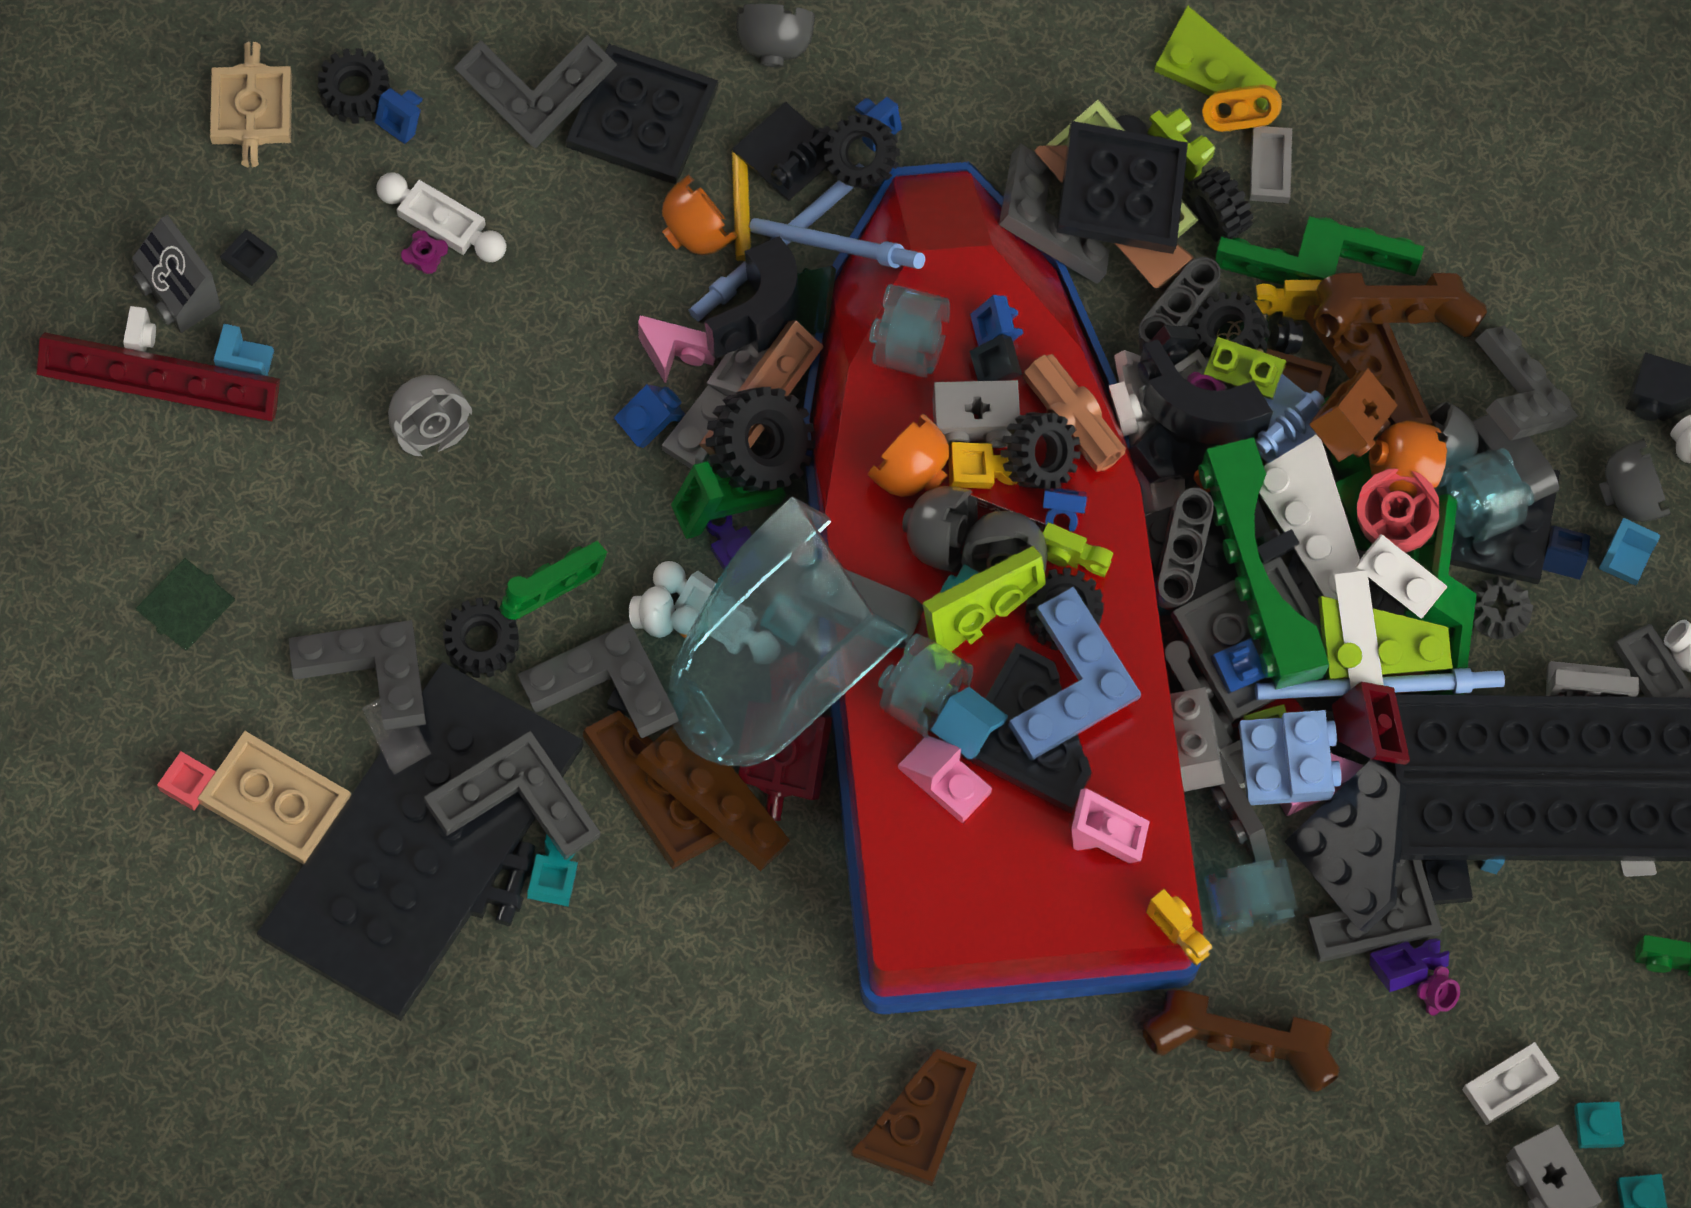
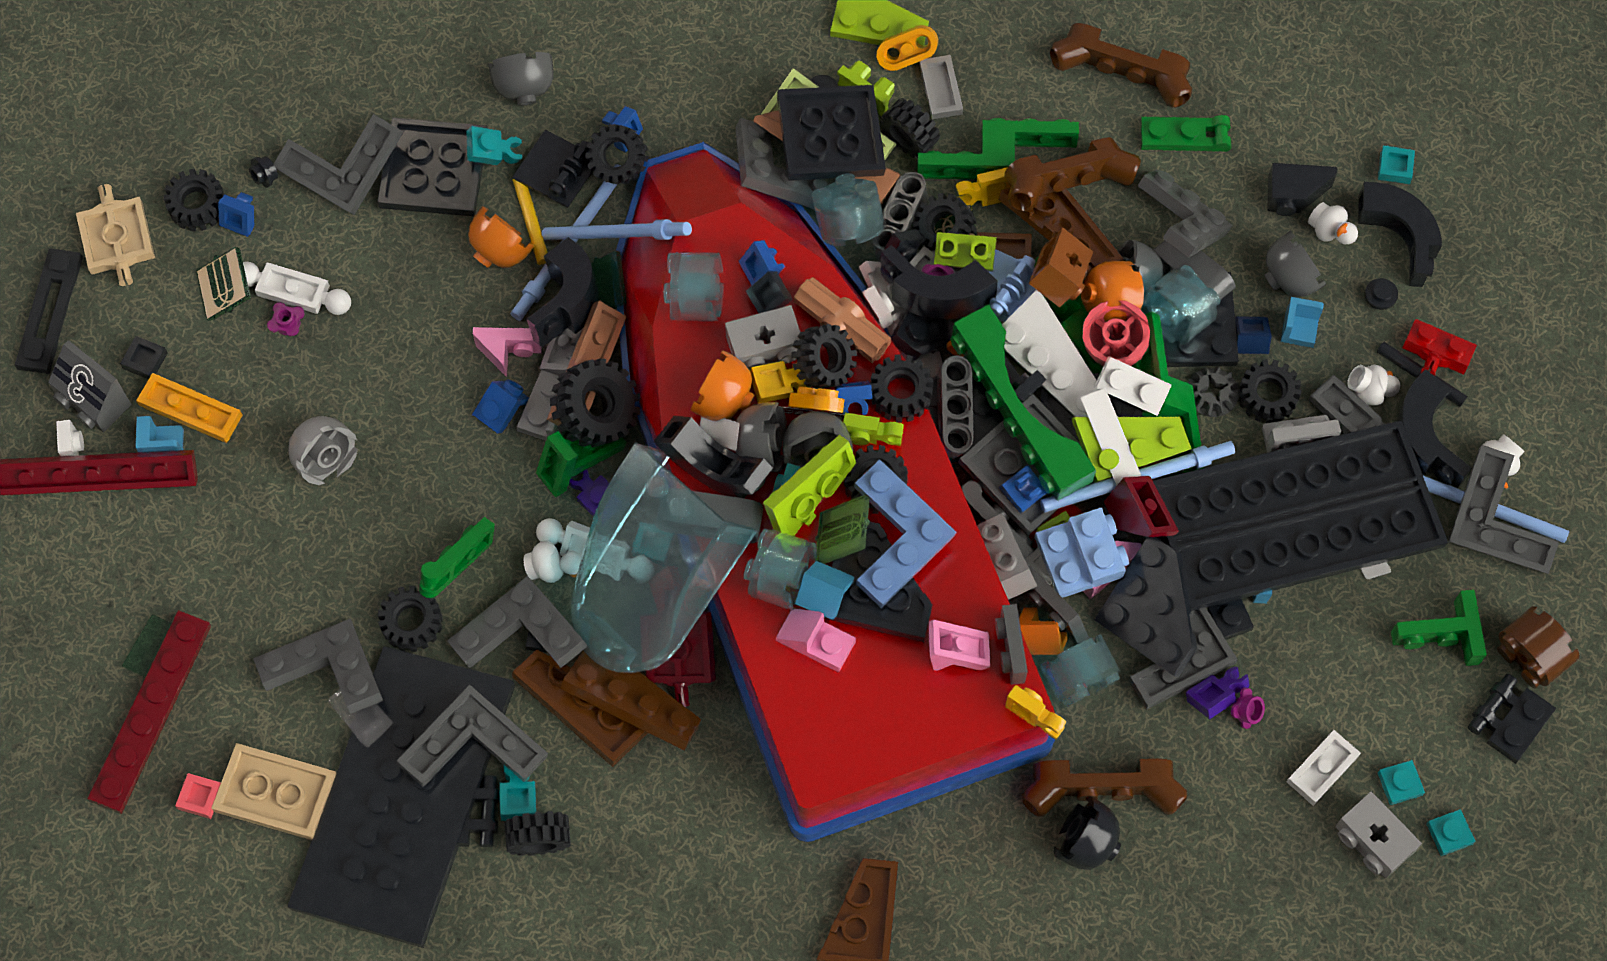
camera: 10 degrees left, 0 degrees up
(128, 221) = (39, 353): none -> black container
(154, 669) = (149, 712): none -> dark red plate
(287, 328) = (189, 408): none -> light orange plate
(362, 192) = (223, 284): none -> piece
(441, 71) = (263, 171): none -> black plate
(565, 923) = (537, 833): none -> black tyre
(713, 107) = (487, 147): none -> teal plate
(874, 539) = (710, 461): none -> black arch
(894, 509) = (722, 431): none -> white sticker
(1009, 658) = (842, 530): none -> clear green piece
(1018, 499) = (816, 399): none -> light orange plate
(1118, 285) = (848, 210): none -> clear light blue brick
(1122, 533) = (901, 369): none -> black tyre
(1170, 858) = (1013, 659): none -> dark grey plate
(1210, 1091) = (1090, 836): none -> black cylinder
(1212, 843) = (1041, 636): none -> orange panel
(1287, 335) = (989, 218): black plate -> none
(1545, 212) = (1165, 73): none -> reddish brown plate
(1551, 291) = (1185, 133): none -> green plate
(1577, 604) = (1277, 375): none -> black tyre

